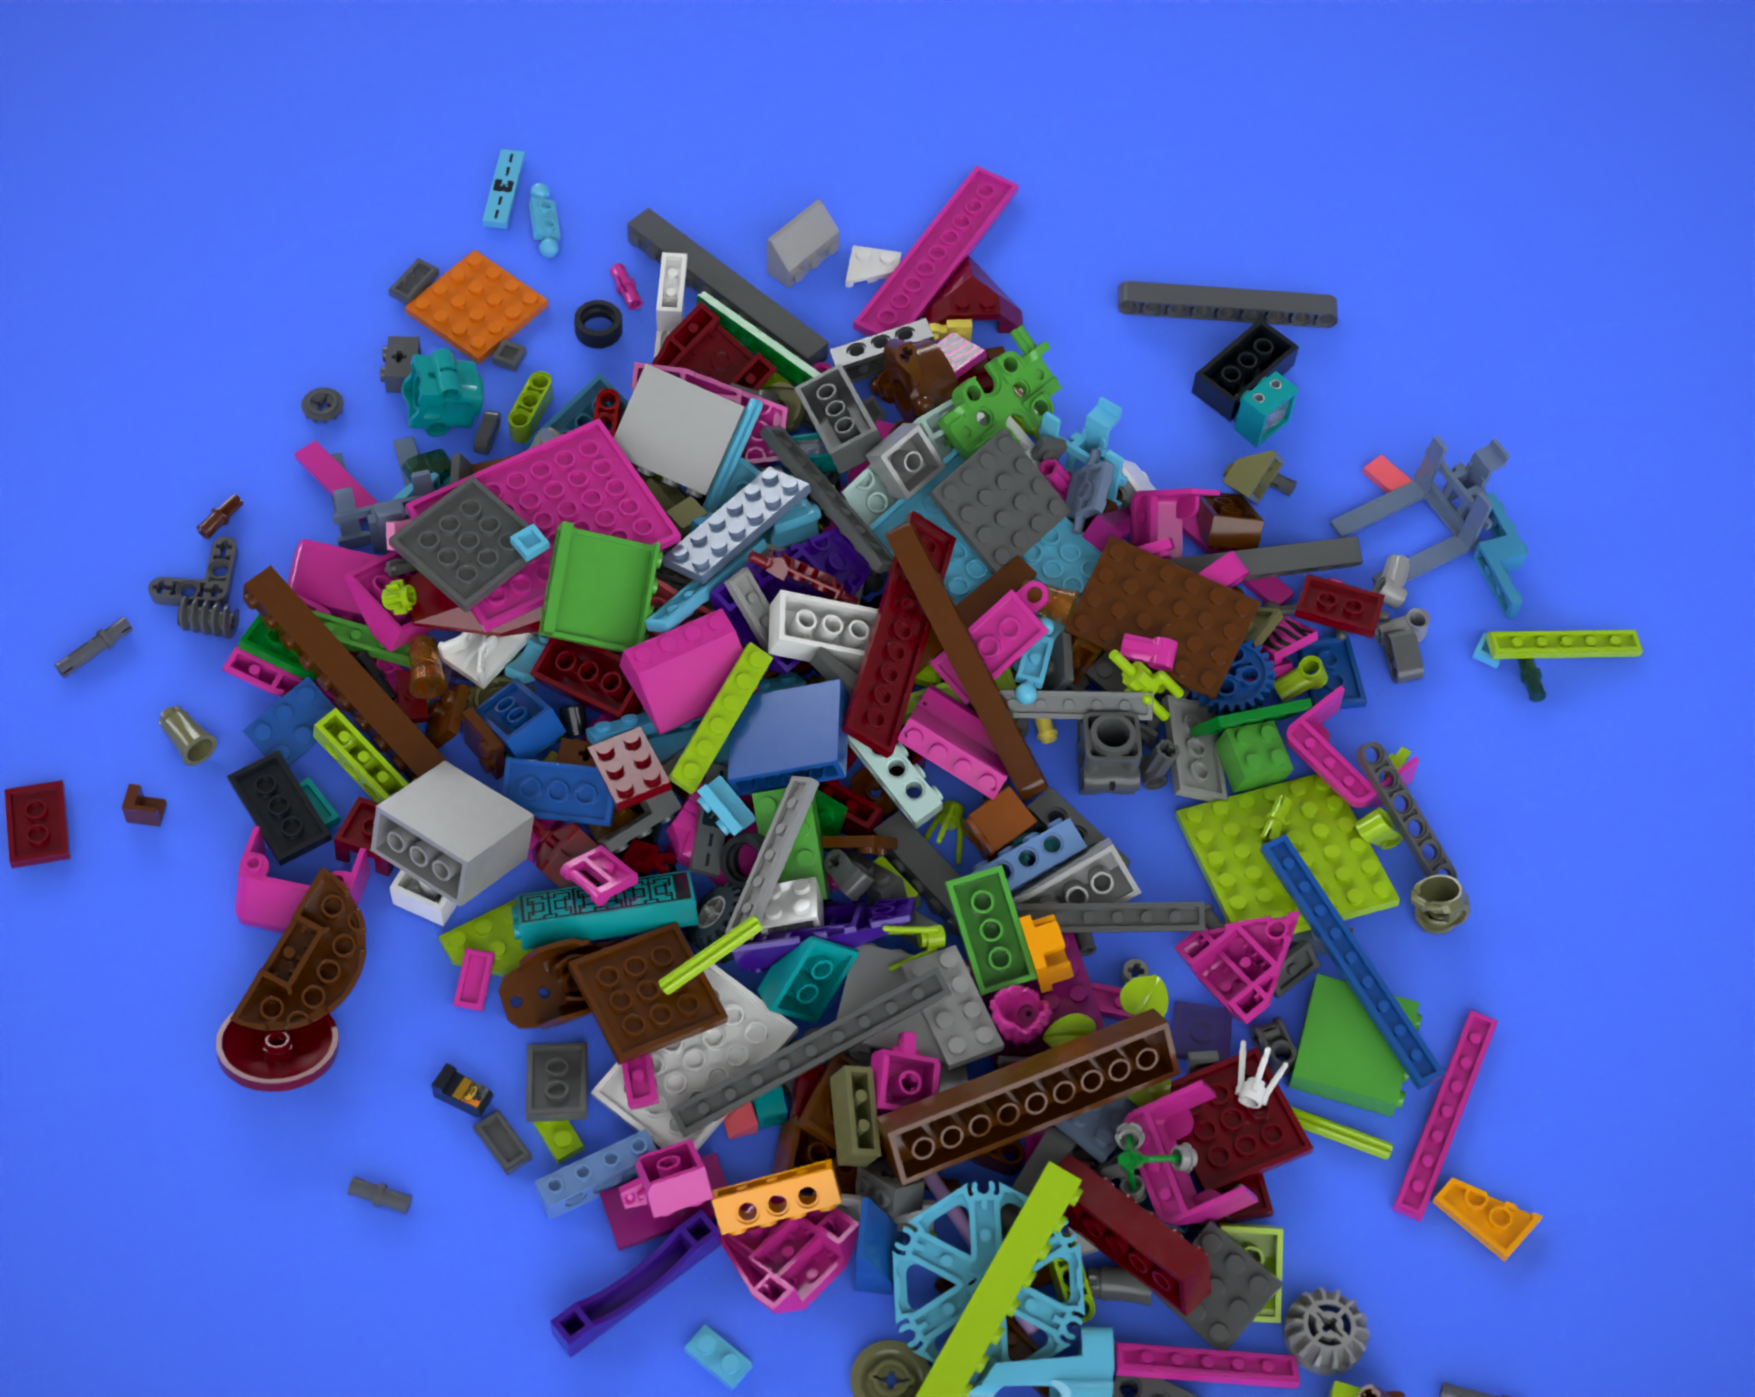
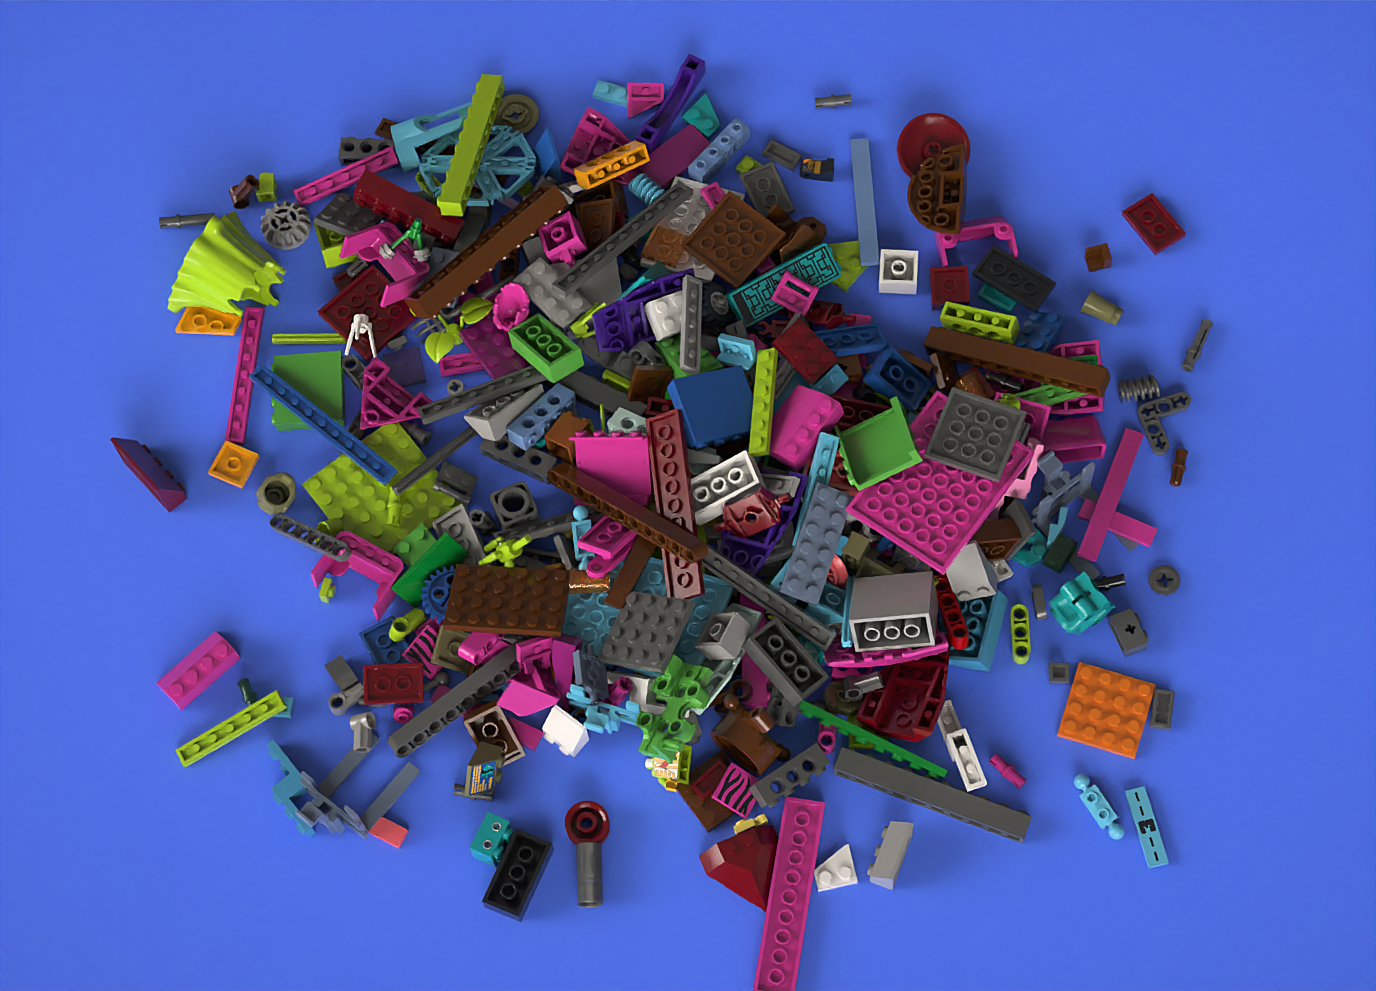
camera: 170 degrees right, 10 degrees up
(320, 510) = (1110, 495): none -> dark pink tile
(393, 424) = (1106, 583): none -> black pin
(419, 1013) = (864, 202): none -> medium blue tile
(452, 833) = (894, 283): light grey brick -> none
(474, 979) = (844, 232): dark pink tile -> none
(529, 542) = (933, 440): medium azure plate -> none
(593, 1255) = (703, 117): none -> teal wing
(594, 309) = (1010, 711): black tyre -> none
(668, 1180) = (683, 152): dark pink hinge -> none
(671, 1322) = (643, 96): none -> dark pink wing
(710, 955) = (702, 258): lime axle -> none
(735, 1149) = (645, 189): none -> medium azure piece
(750, 1034) = (664, 246): none -> clear orange tile
(855, 1116) = (583, 210): olive brick -> none
(1046, 950) = (514, 350): light orange panel -> none
(1048, 448) = (630, 695): dark grey plate -> none
(1144, 393) = (583, 812): none -> dark red wheel
(1156, 652) = (502, 565): dark pink piece -> none
(1159, 346) = (589, 870): none -> dark grey piece
(1176, 838) = (457, 479): none -> dark grey plate
(1204, 860) = (434, 460): none -> dark grey axle
(1227, 304) = (550, 941): dark grey beam -> none
(1447, 1236) = (225, 266): none -> lime piece
(1491, 981) = (233, 464): none -> light orange plate
(1596, 731) = (198, 670): none -> dark pink slope
(1624, 995) = (150, 473): none -> slope

